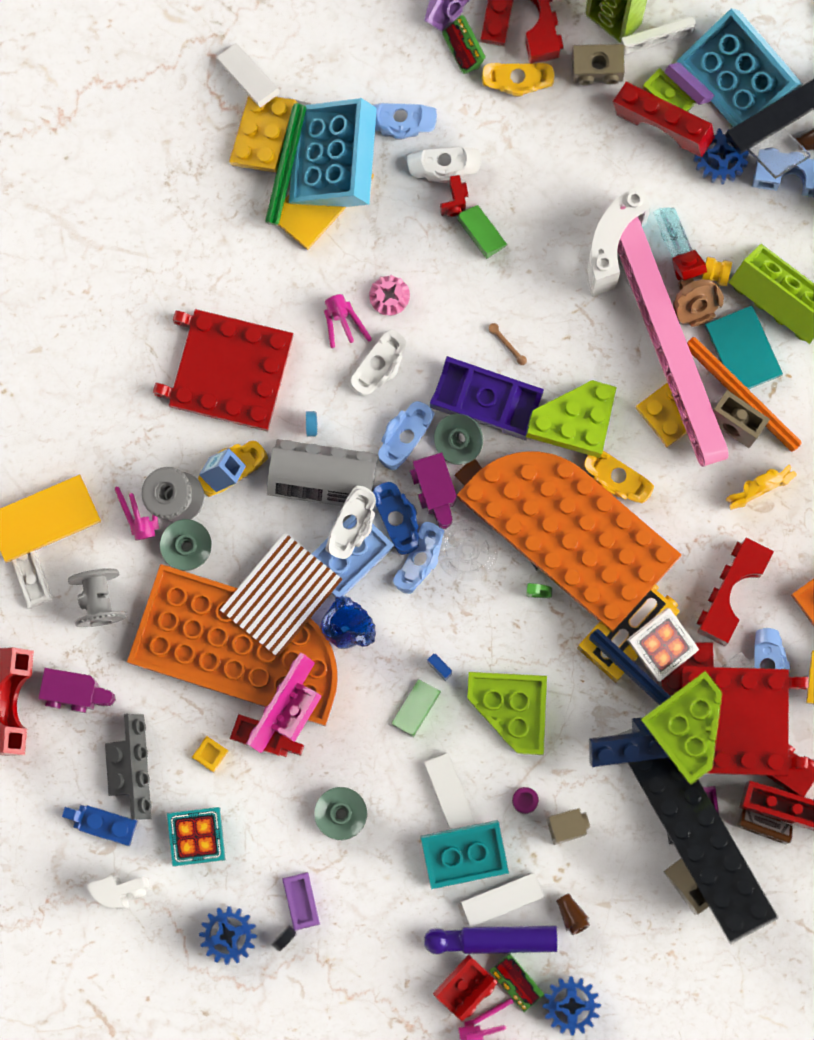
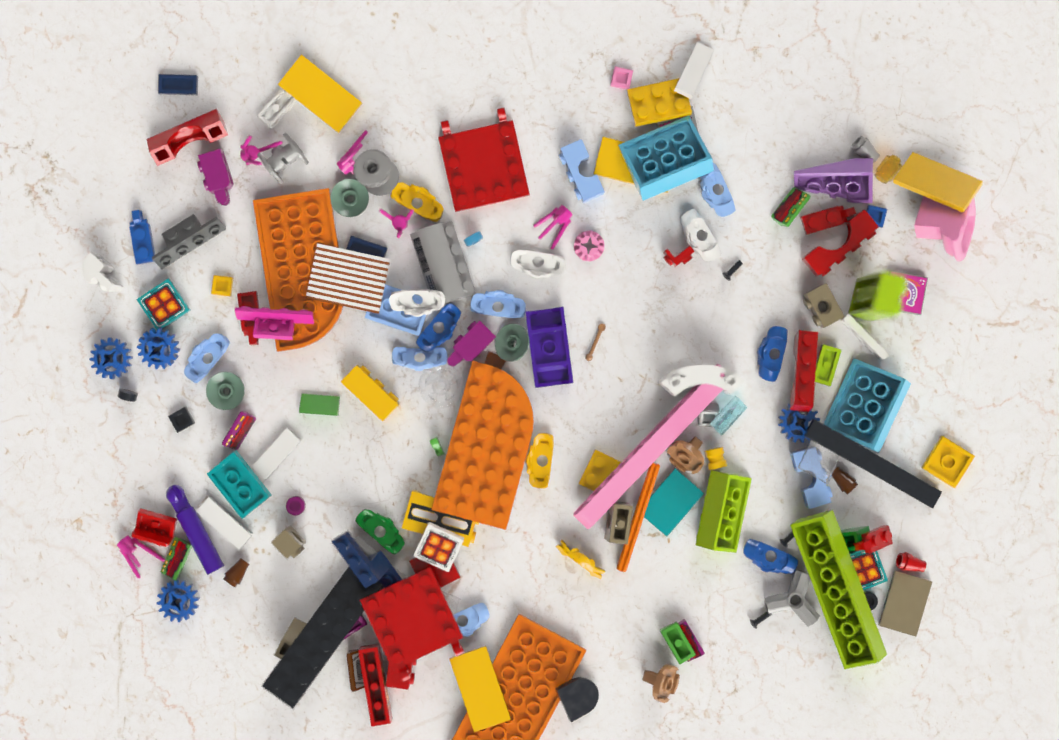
camera: 60 degrees right, 10 degrees up
(69, 636) = (250, 152): none -> dark pink plant
(212, 162) = (621, 78): none -> bright pink tile
(222, 470) = (409, 196): medium blue brick -> none
(235, 870) = (152, 341): none -> blue gear
(245, 500) = (399, 222): none -> dark pink plant
(253, 556) = (366, 247): none -> dark blue tile
(285, 164) = (643, 129): green axle -> none
(294, 836) = (196, 368): none -> light blue piece
(301, 901) = (157, 393): medium lavender tile -> none
(318, 264) = (586, 187): none -> light blue arch
(348, 624) = (349, 333): clear blue hair -> none
(348, 888) = (181, 419): none -> black tile
(398, 822) = (239, 430): none -> slope
(433, 636) = (370, 392): none -> yellow brick
(439, 666) = (353, 407): blue tile -> none
(481, 231) = (665, 285): bright green slope -> none
(506, 154) = (727, 275): none -> black piece
(512, 707) = (351, 467): lime plate -> none
(536, 77) = (780, 242): yellow piece -> none
(575, 419) = (564, 414): lime plate -> none
(625, 702) = (391, 541): none -> green piece
(629, 667) = (404, 552): dark blue axle -> none
(639, 159) = (770, 368): none -> blue piece
(661, 255) = (708, 415): none -> light grey slope
(688, 265) = (708, 438): red bracket -> none
(688, 726) = (386, 592): lime plate -> none
(689, 83) = (840, 375): medium lavender tile -> none
(720, 619) = (525, 574): red arch -> none

